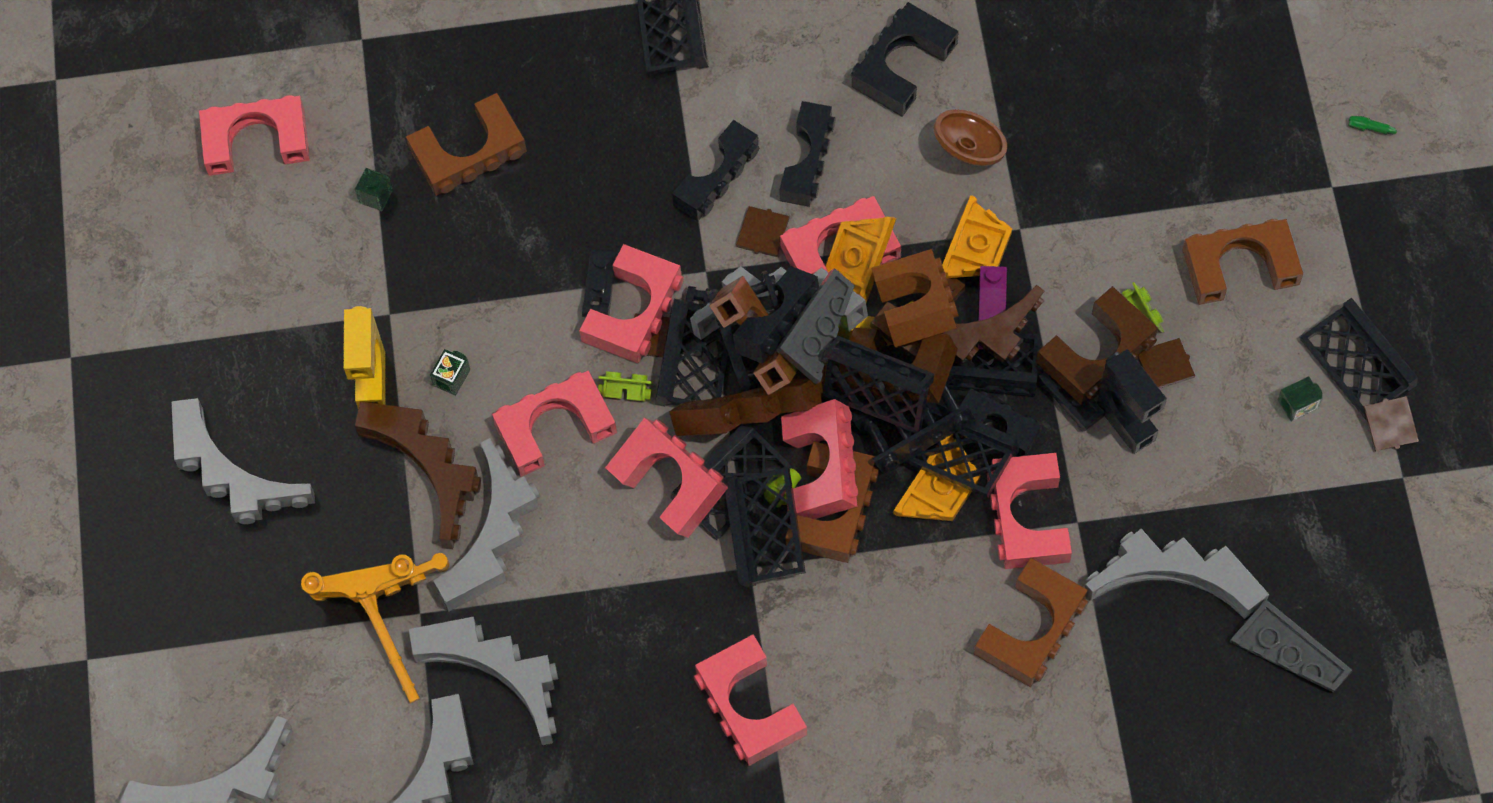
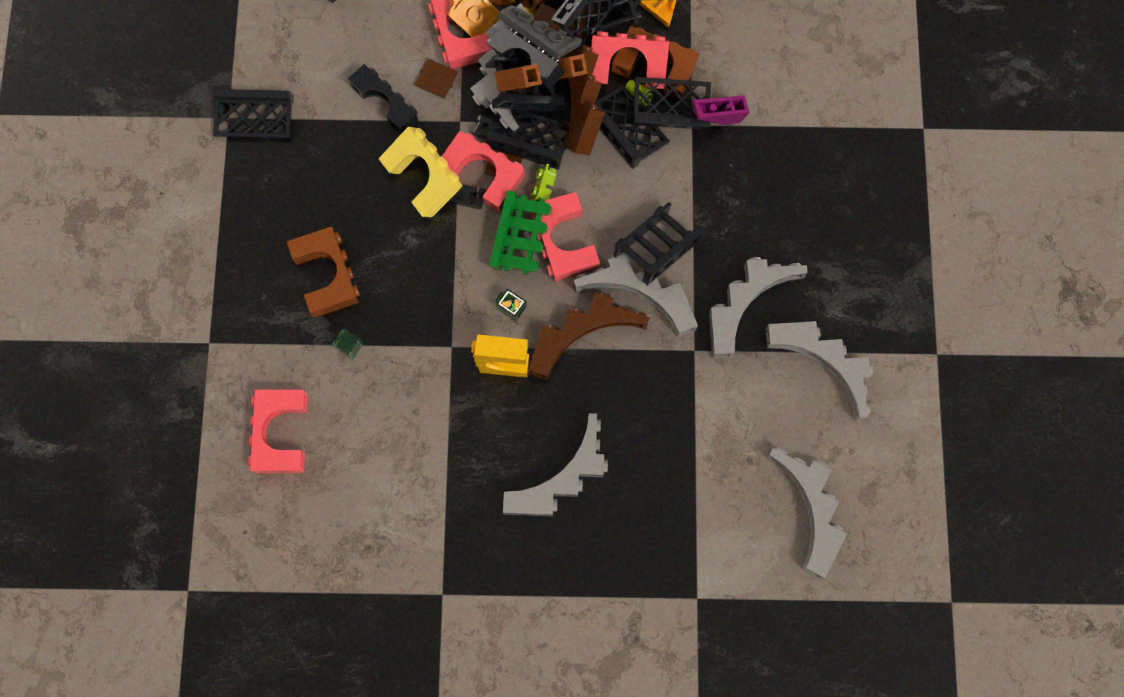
camera: 85 degrees left, 10 degrees up
(366, 587) = (680, 377): light orange piece -> none
(546, 347) = (505, 240): none -> green fence
(550, 561) = (664, 260): none -> black fence
(600, 253) = (442, 181): none -> light yellow arch
(699, 486) = (599, 165): coral arch -> none
(752, 737) = (774, 153): coral arch -> none
(761, 587) = (722, 110): none -> magenta slope
(799, 181) = (363, 29): black arch -> none

